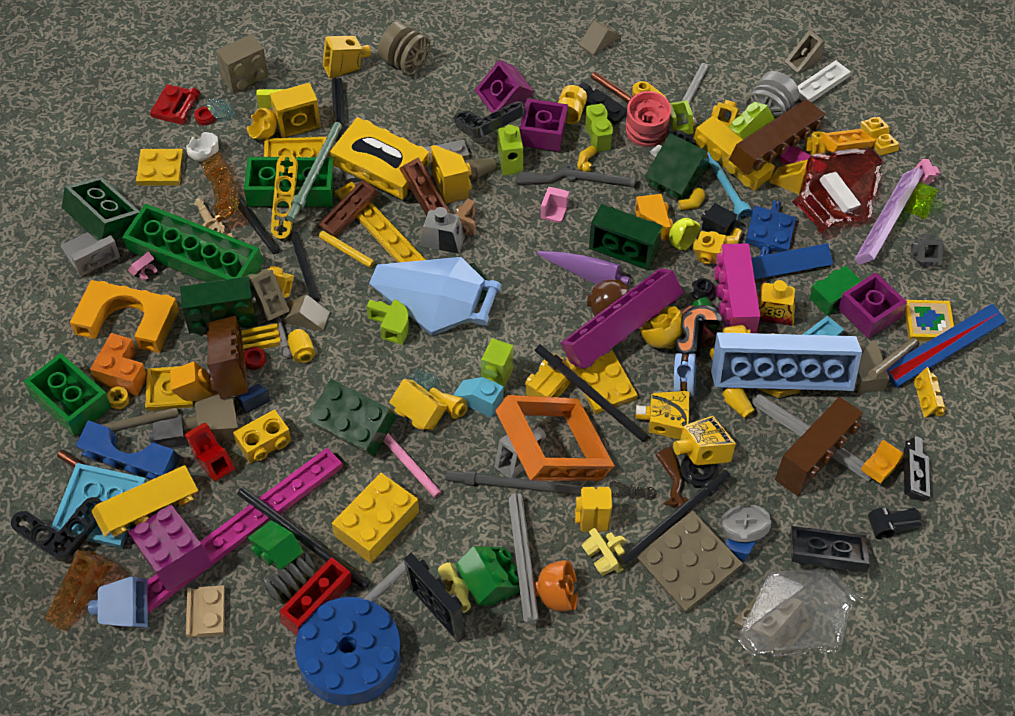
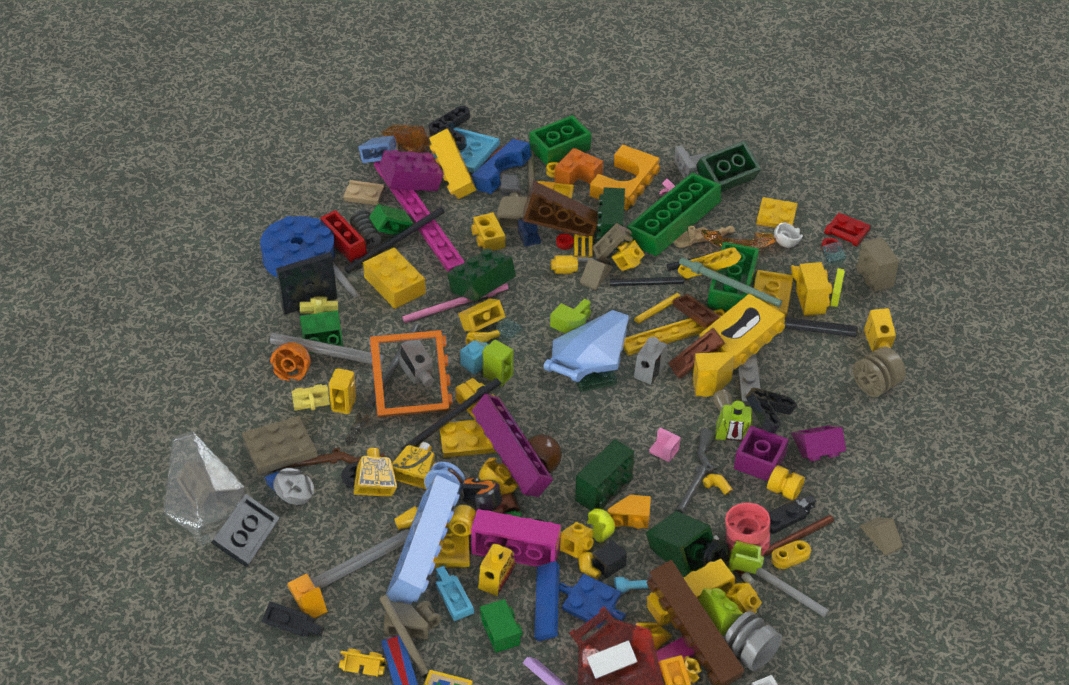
camera: 105 degrees right, 10 degrees down
(208, 452) = (483, 204): red brick -> none
(466, 213) = (667, 381): medium nougat bracket -> none
(587, 267) = (583, 456): medium lavender piece -> none
(598, 127) = (757, 493): lime brick -> none
(694, 201) = (645, 552): yellow arm -> none
(708, 489) = (333, 469): black bar -> none
(818, 445) = (336, 544): reddish brown wedge -> none
(872, 305) = (469, 642): magenta brick -> none
(888, 523) = (251, 586): black piece -> none

